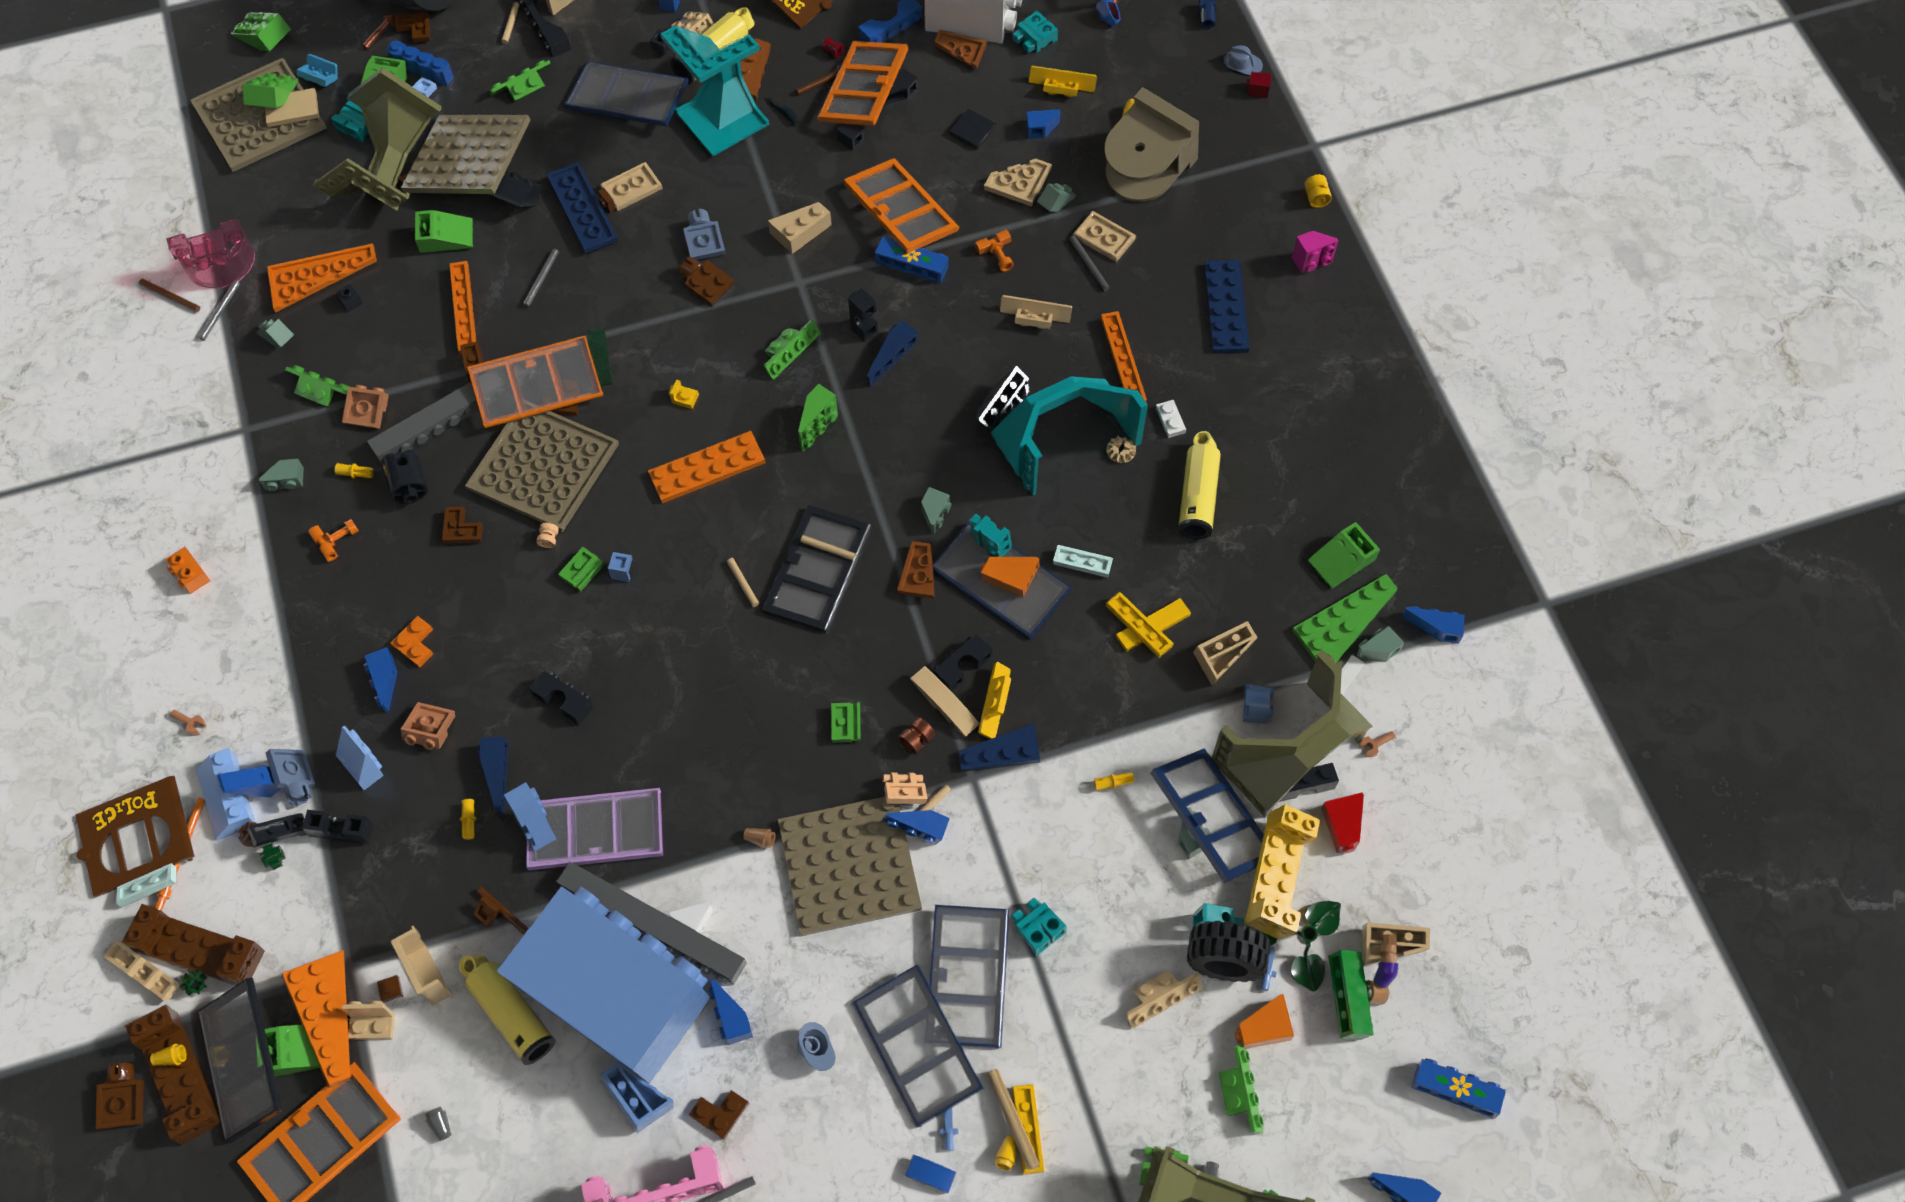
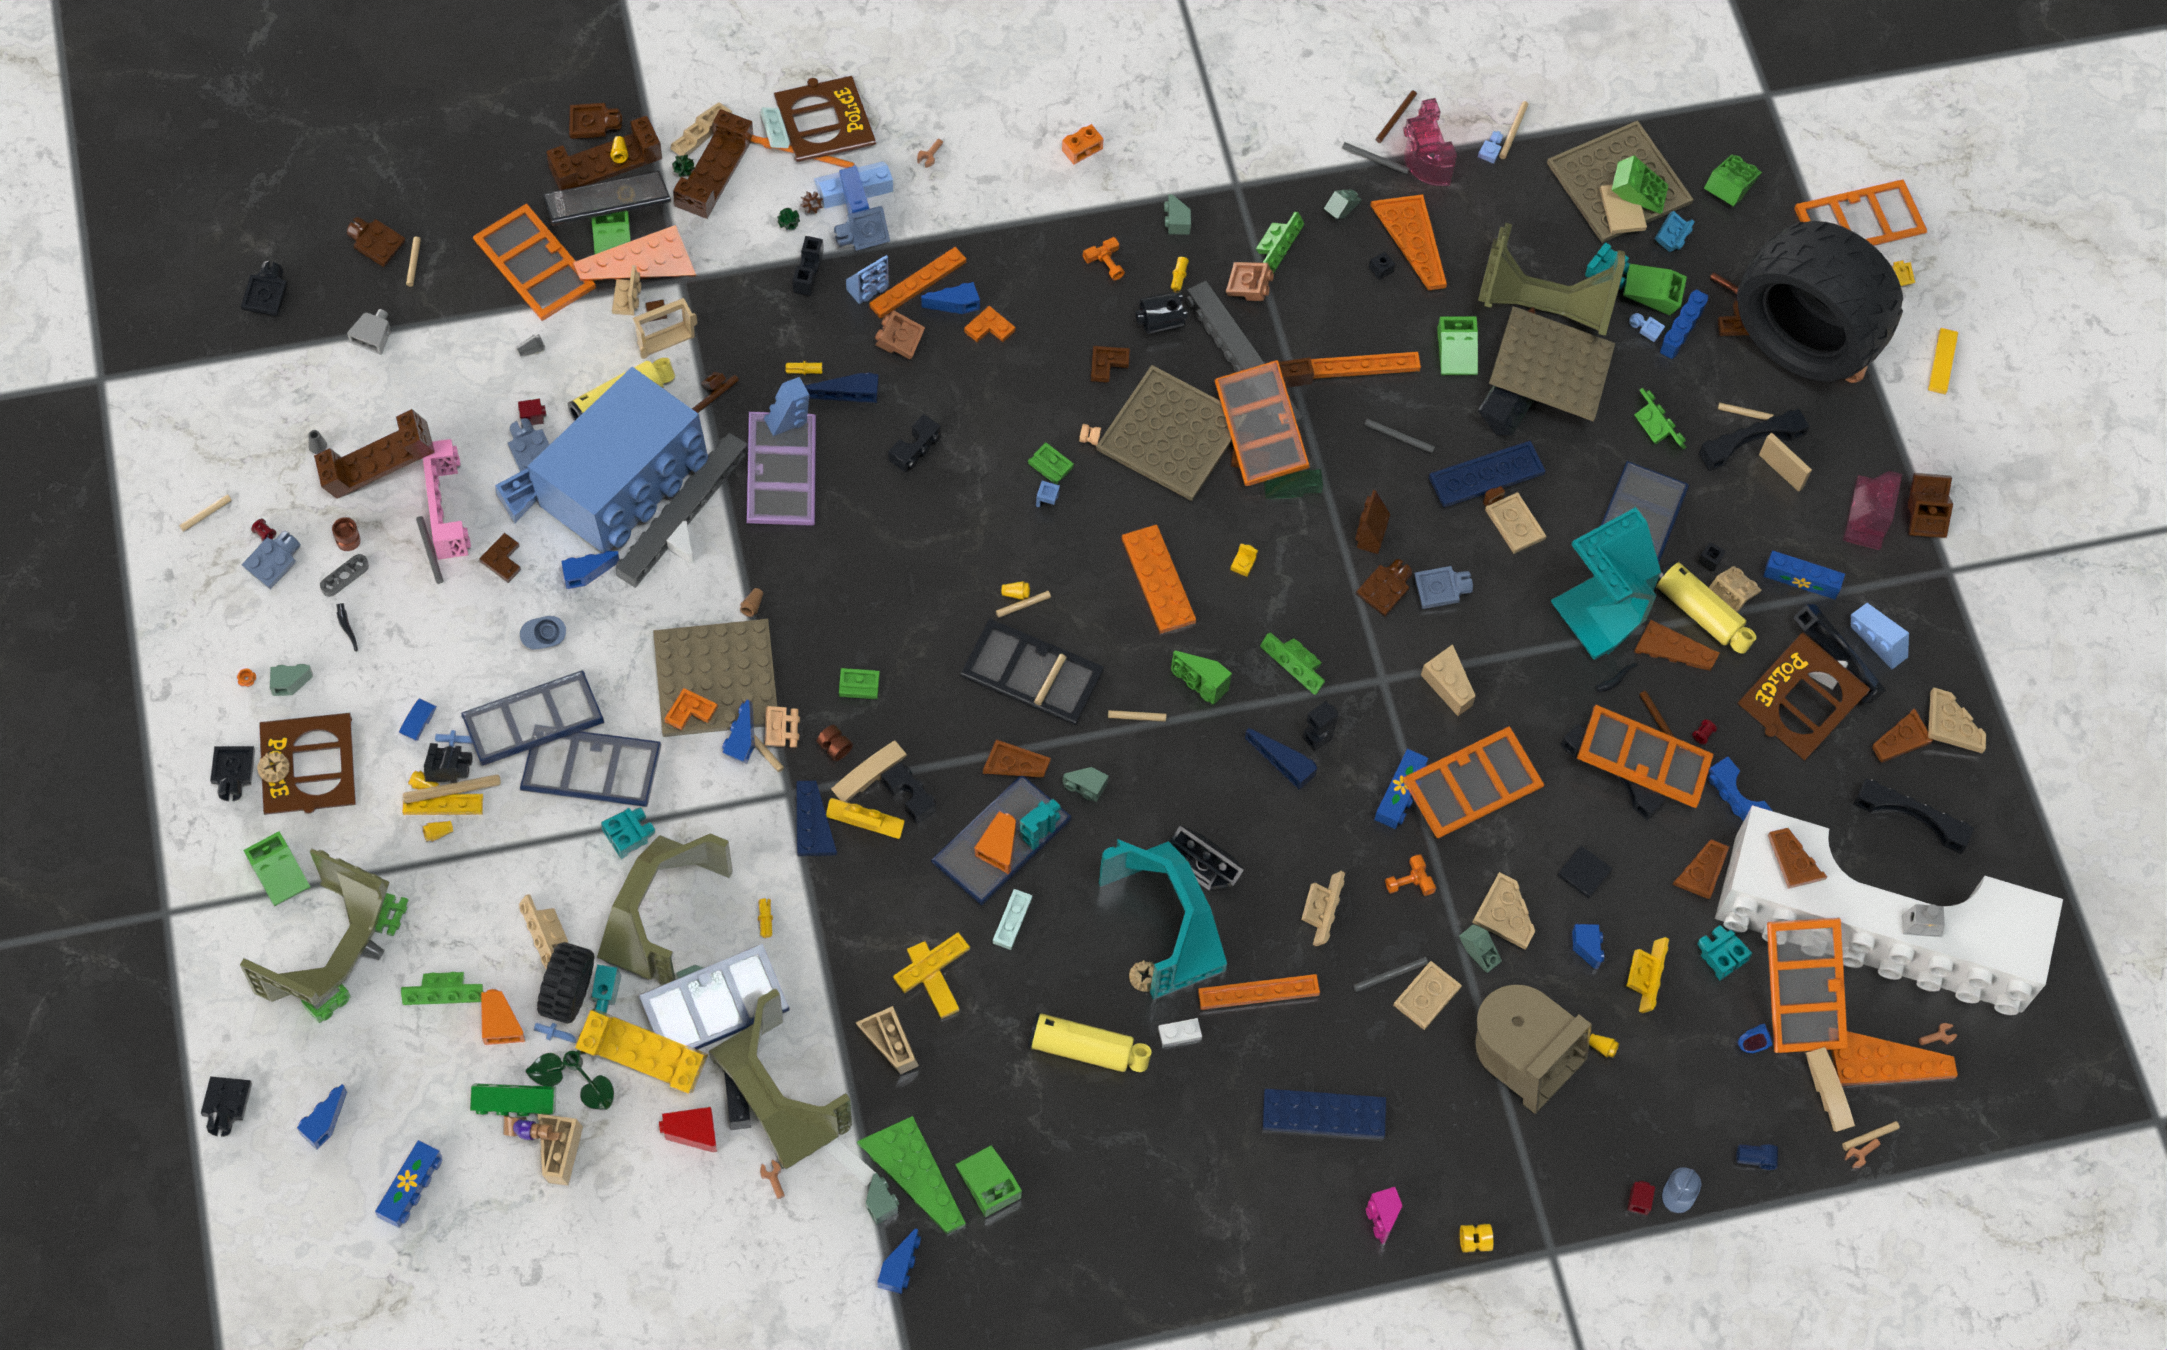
camera: 90 degrees right, 0 degrees up
(186, 197) = (1513, 130): none -> tan bar
(213, 217) = (1491, 150): none -> light blue plate
(276, 829) = (809, 217): black plate -> none
(358, 717) = (917, 282): none -> orange plate
(530, 1107) = (532, 410): none -> dark red brick
(577, 1102) = (526, 443): none -> sand blue plate
(645, 289) = (1372, 524): none -> reddish brown slope
(729, 586) = (1016, 590): none -> yellow cone
(856, 475) = (1136, 715): none -> tan bar
(891, 879) = (687, 705): none -> orange plate
(987, 1128) = (446, 763): none -> black hips
(1062, 1129) = (436, 830): none -> yellow cone
(1082, 869) = (624, 935): none -> olive panel
(1257, 703) = (833, 1065): medium blue cylinder -> none

